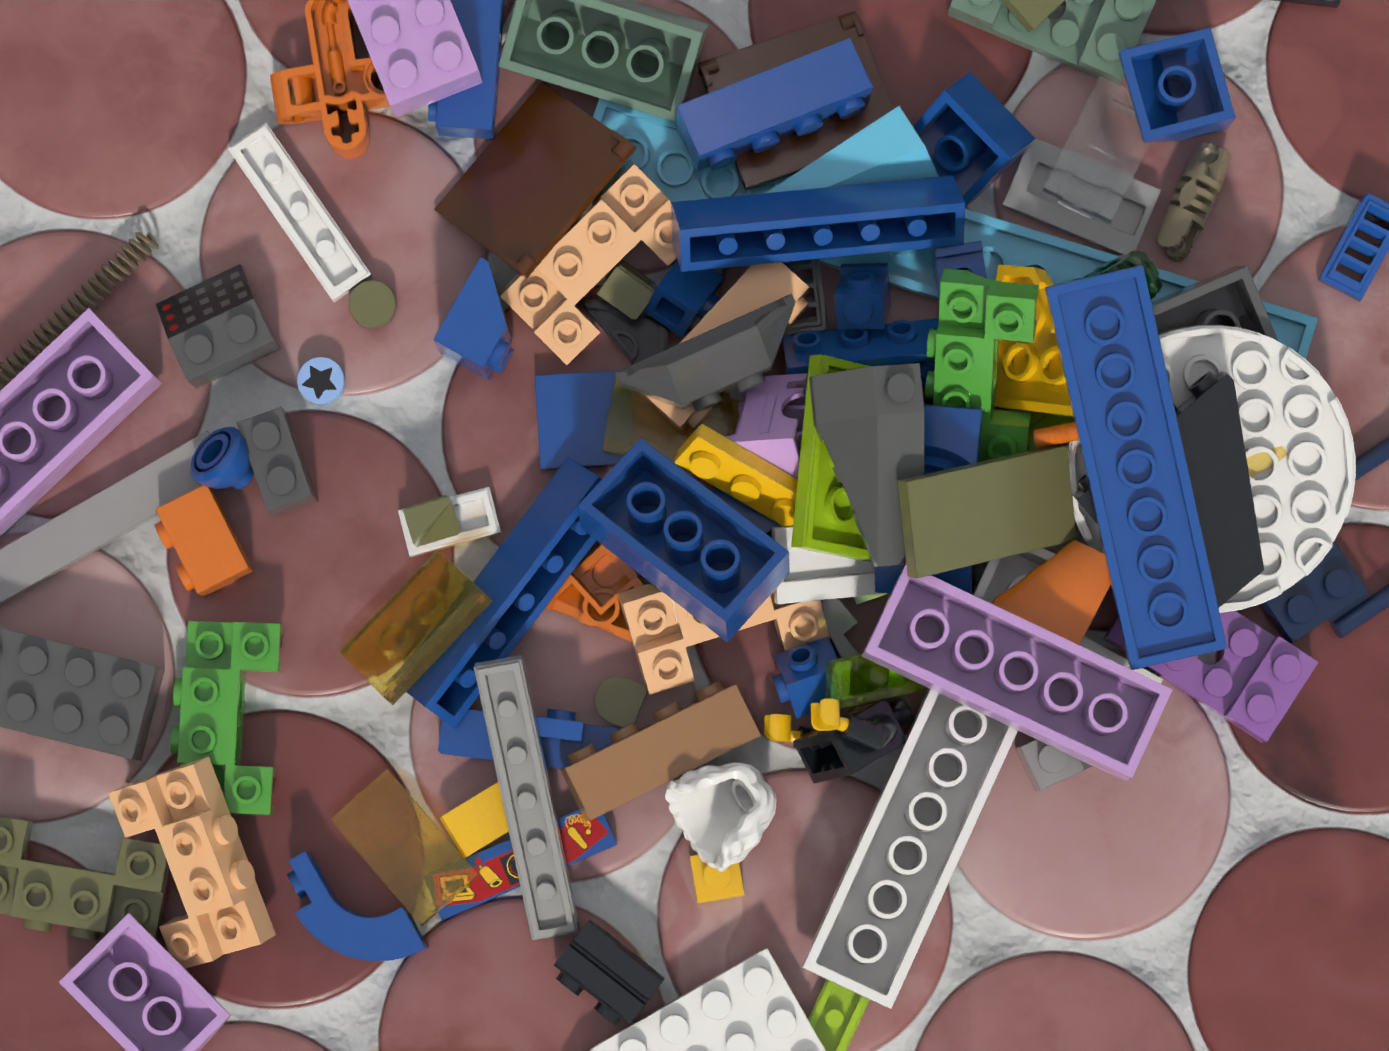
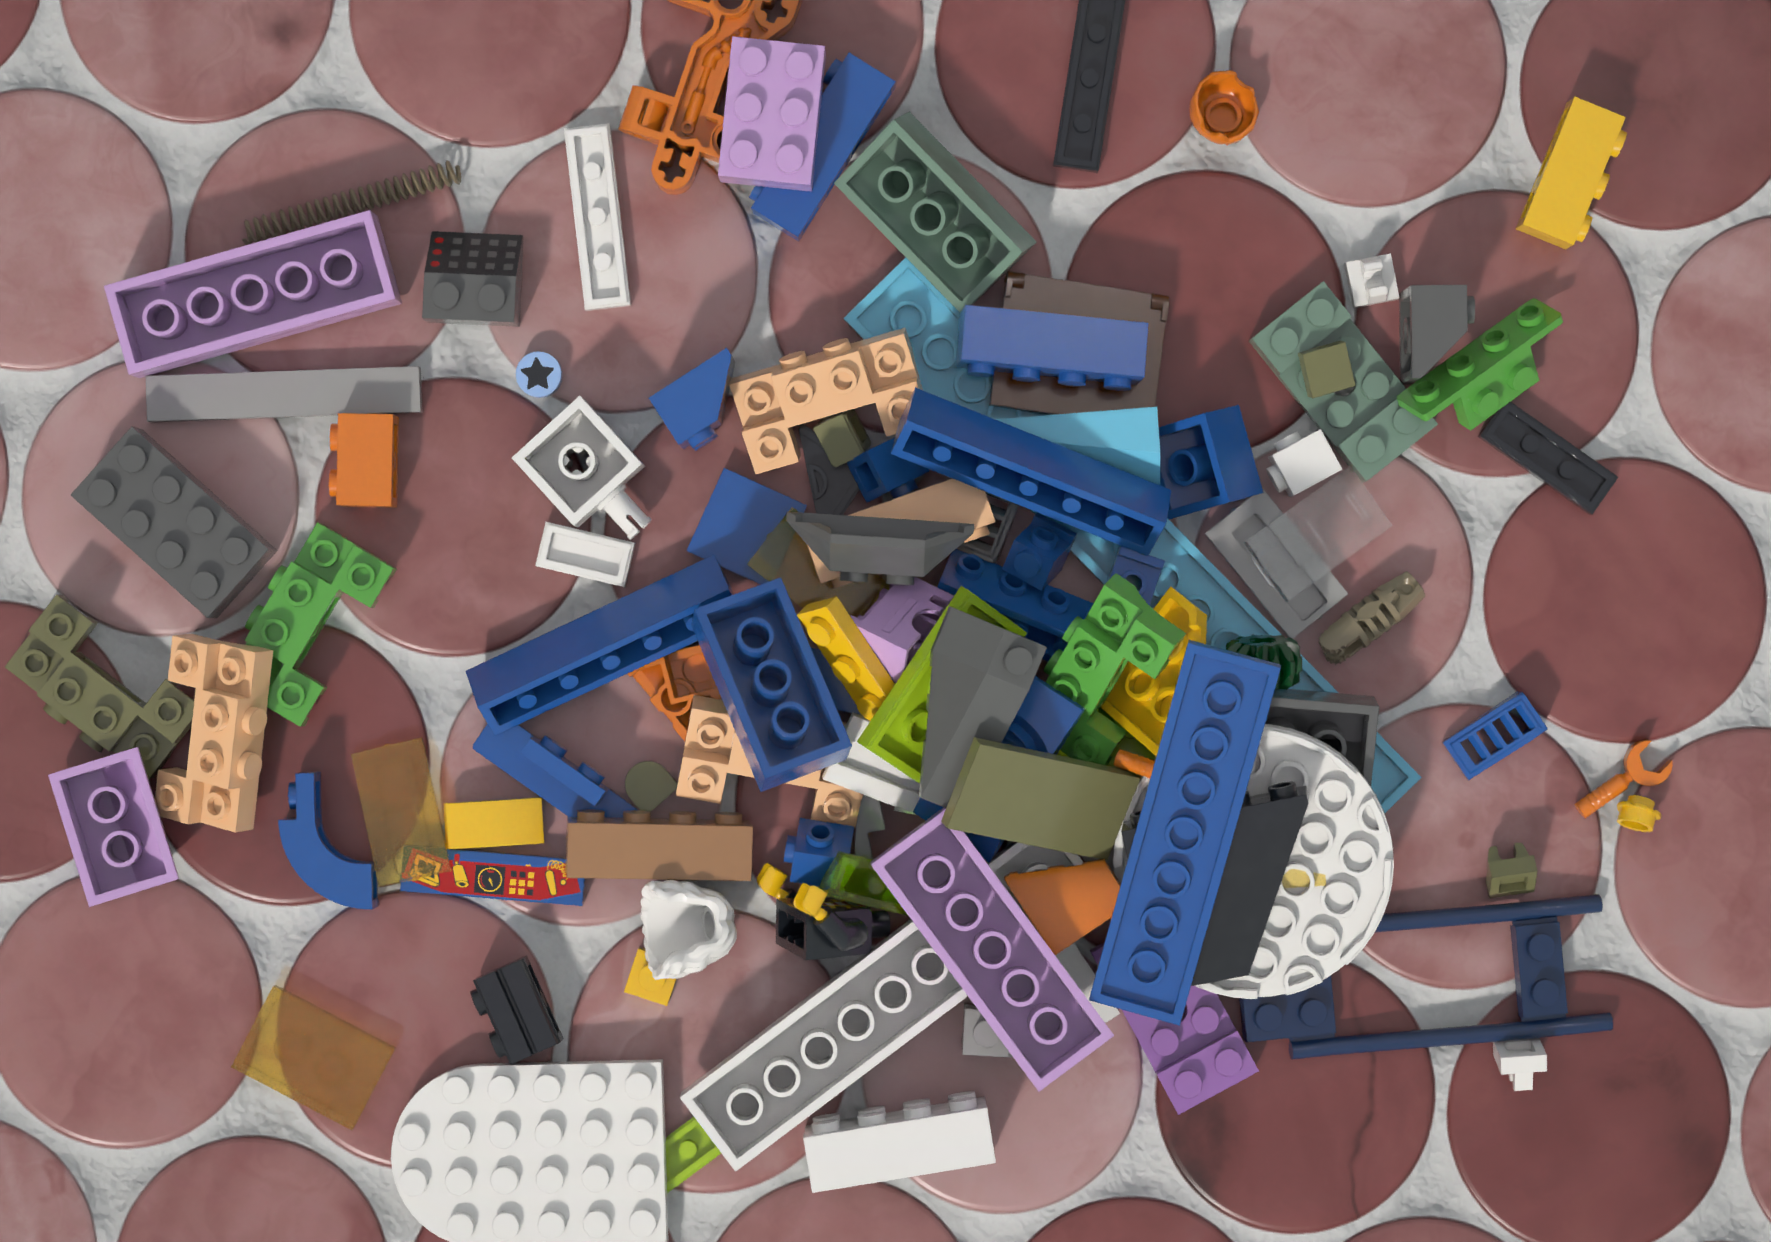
camera: 25 degrees right, 5 degrees up
(222, 460) = (417, 401): blue brick -> none
(277, 462) = (464, 426): dark grey brick -> none
(372, 304) = (617, 331): olive tile -> none
(415, 627) = (507, 631): clear yellow tile -> none
(431, 520) = (568, 548): olive slope -> none
(432, 447) = (602, 485): none -> white brick
(527, 797) = (524, 827): light grey tile -> none
(535, 179) = (812, 299): reddish brown piece -> none
(1027, 904) = (898, 1143): none -> white brick
(1055, 94) = (1301, 462): none -> white brick
(1177, 87) = (1408, 514): blue slope -> none

